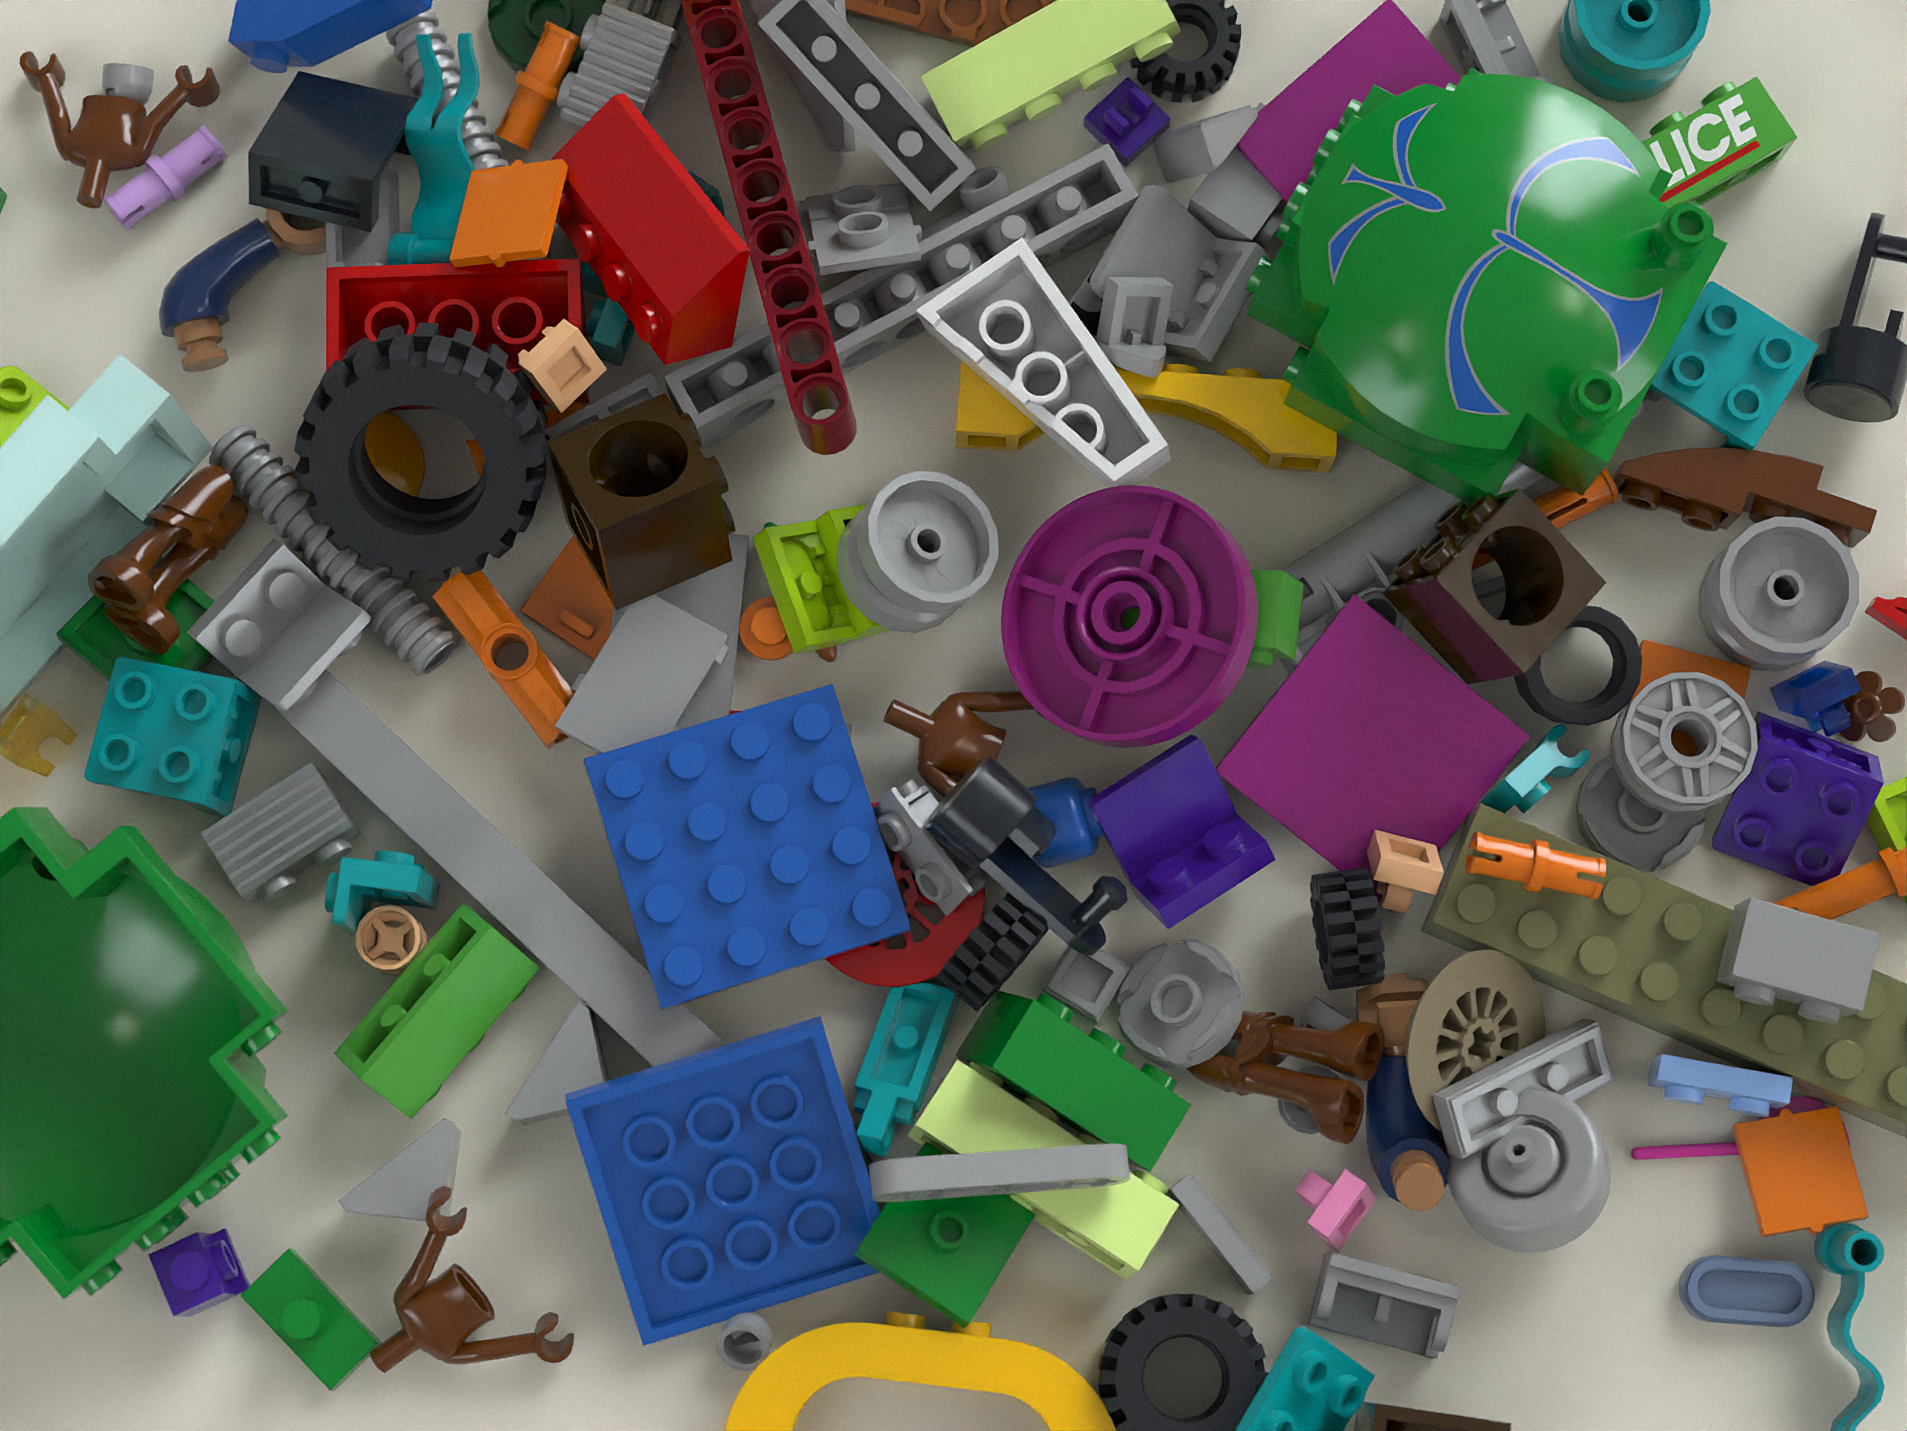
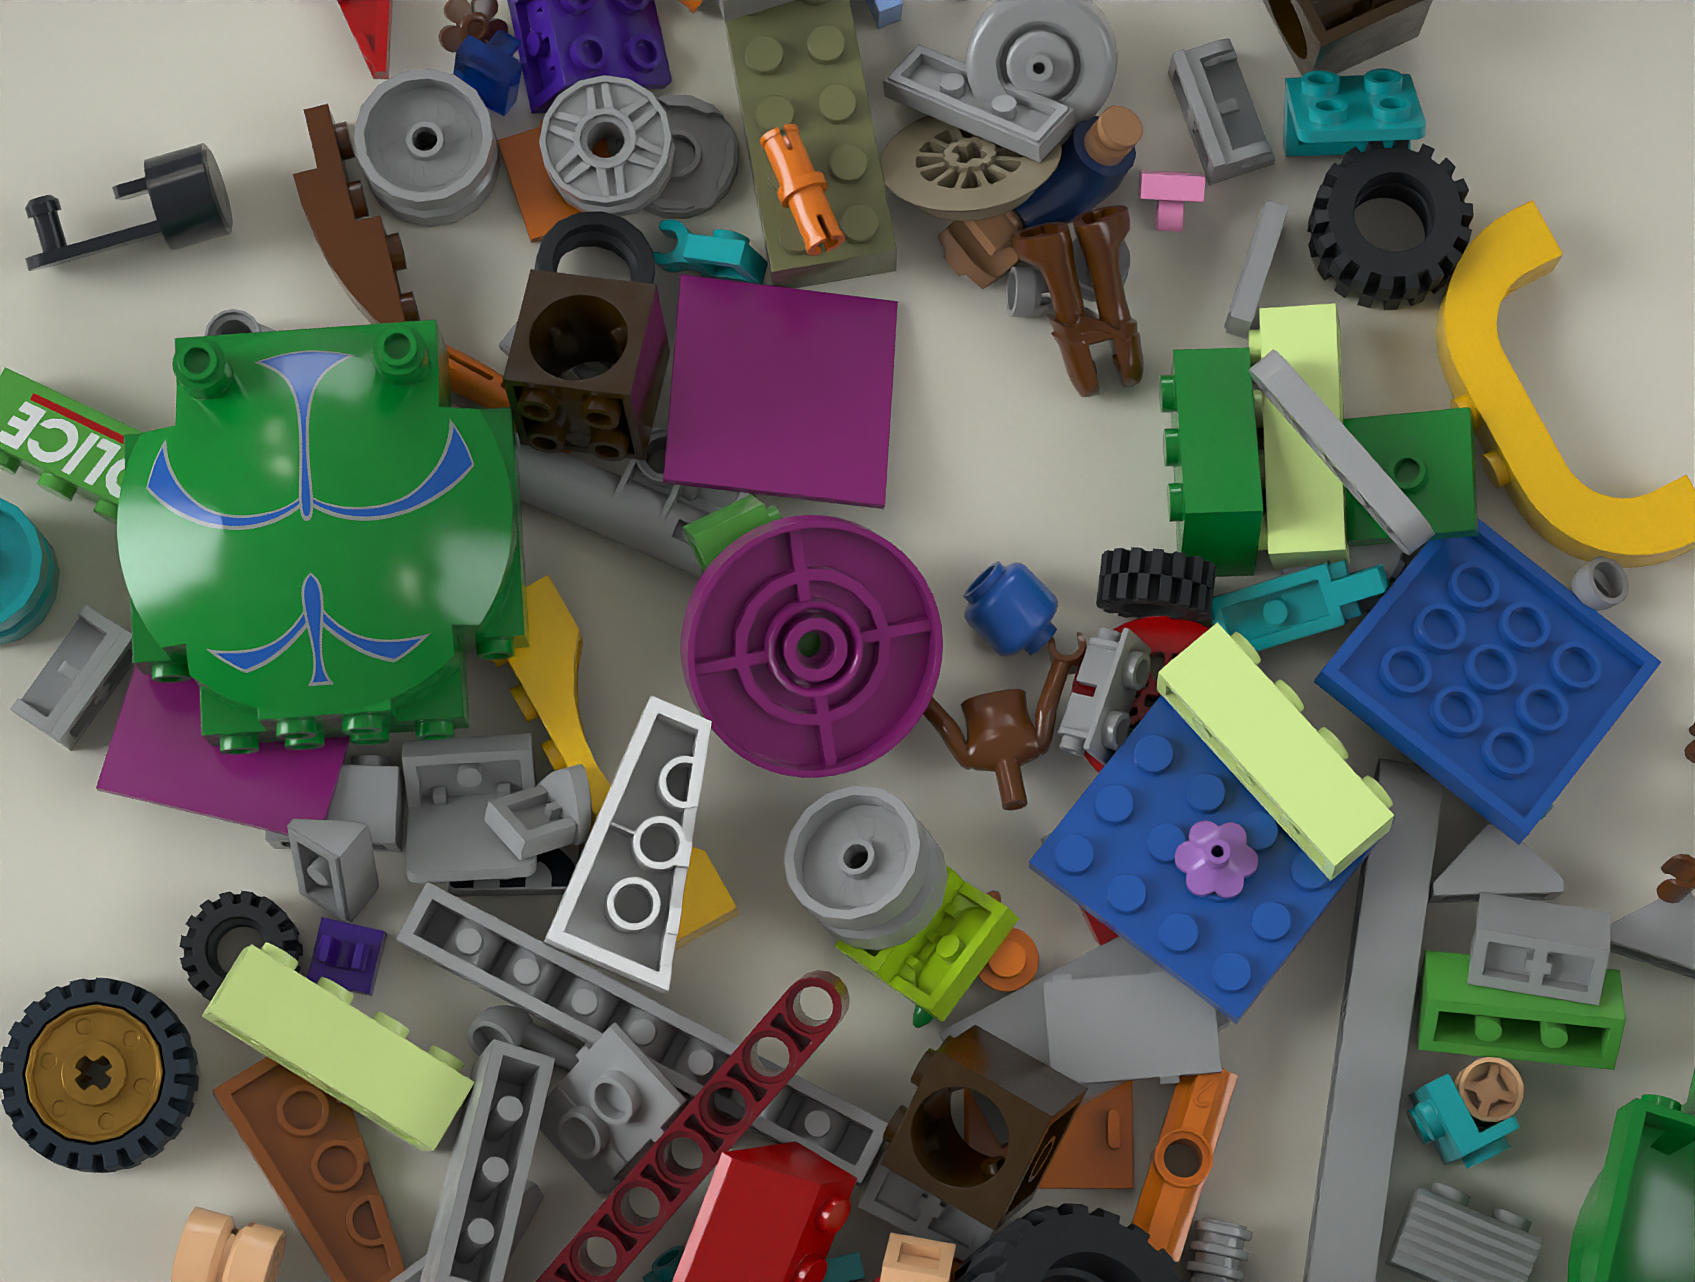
camera: 120 degrees left, 0 degrees up
(471, 1054) = (1540, 948): none -> light grey hinge
(728, 848) = (1213, 874): none -> medium lavender plant
(781, 935) = (1276, 750): none -> yellowish green brick
(975, 828) = (1061, 633): black piece -> none
(1086, 981) = (1121, 508): light grey tile -> none
(1178, 832) = (958, 497): dark purple bracket -> none
(1180, 1003) = (1094, 414): light grey tile -> none
(1347, 928) = (944, 317): black tyre -> none
(1402, 867) = (861, 305): light nougat tile -> none
(1732, 366) = (253, 284): teal bracket -> none

